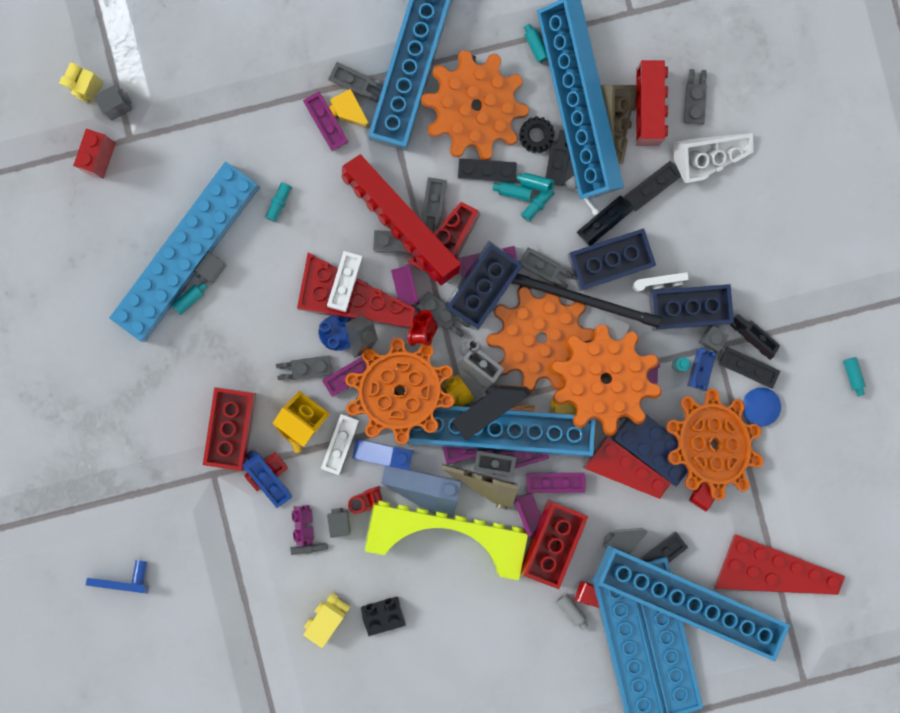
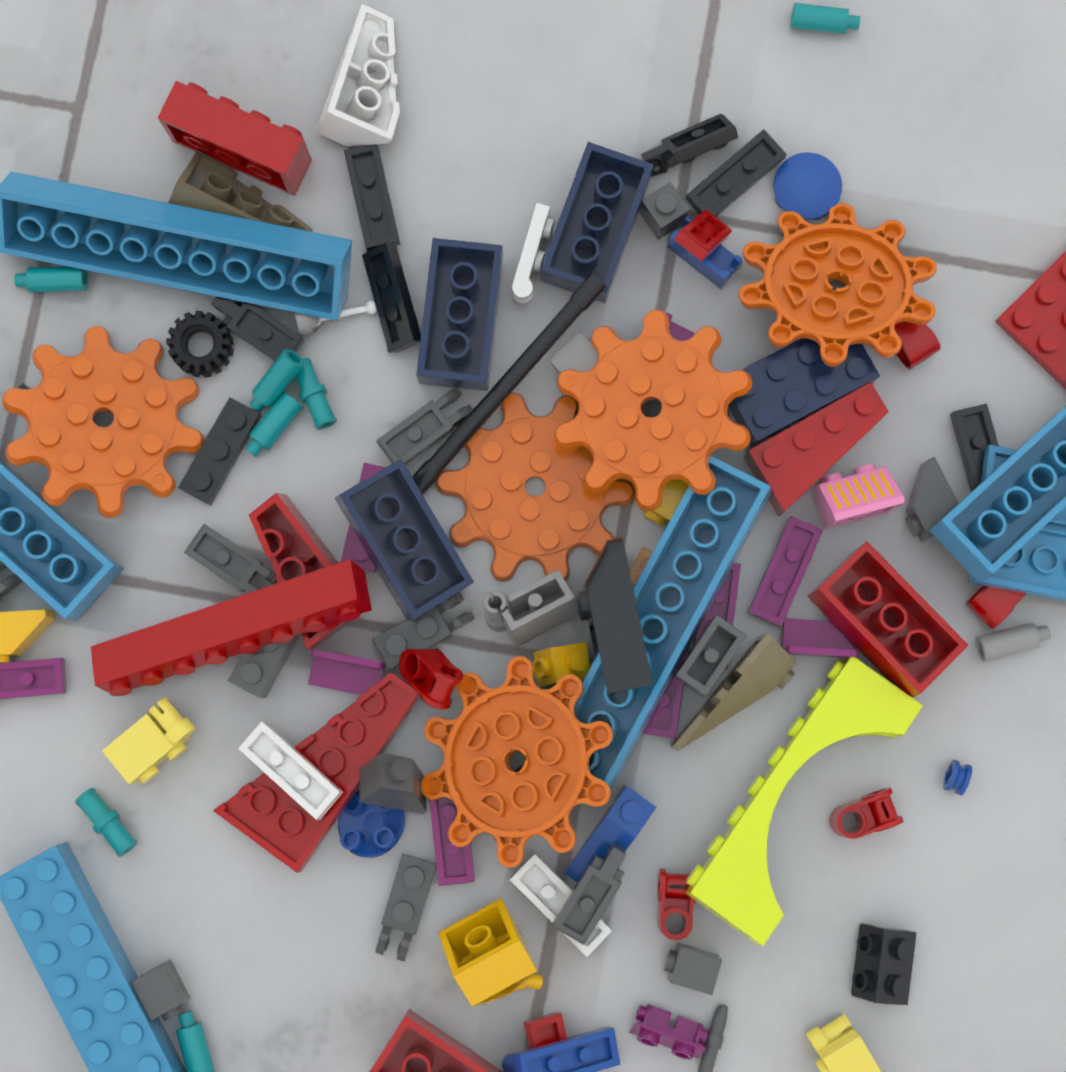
camera: 65 degrees left, 5 degrees down
(326, 205) = (149, 742): none -> light yellow hinge
(351, 457) = (591, 895): none -> dark grey hinge
(424, 489) = (700, 795): sand blue wedge -> none
(455, 578) = (872, 812): none -> red piece
(491, 613) = (957, 777): none -> blue bush
(609, 501) = (856, 496): none -> bright pink slope
(681, 364) = (682, 280): teal cylinder -> none
(695, 99) = (264, 68): dark grey hinge -> none
(708, 365) = (703, 235): none -> red plate

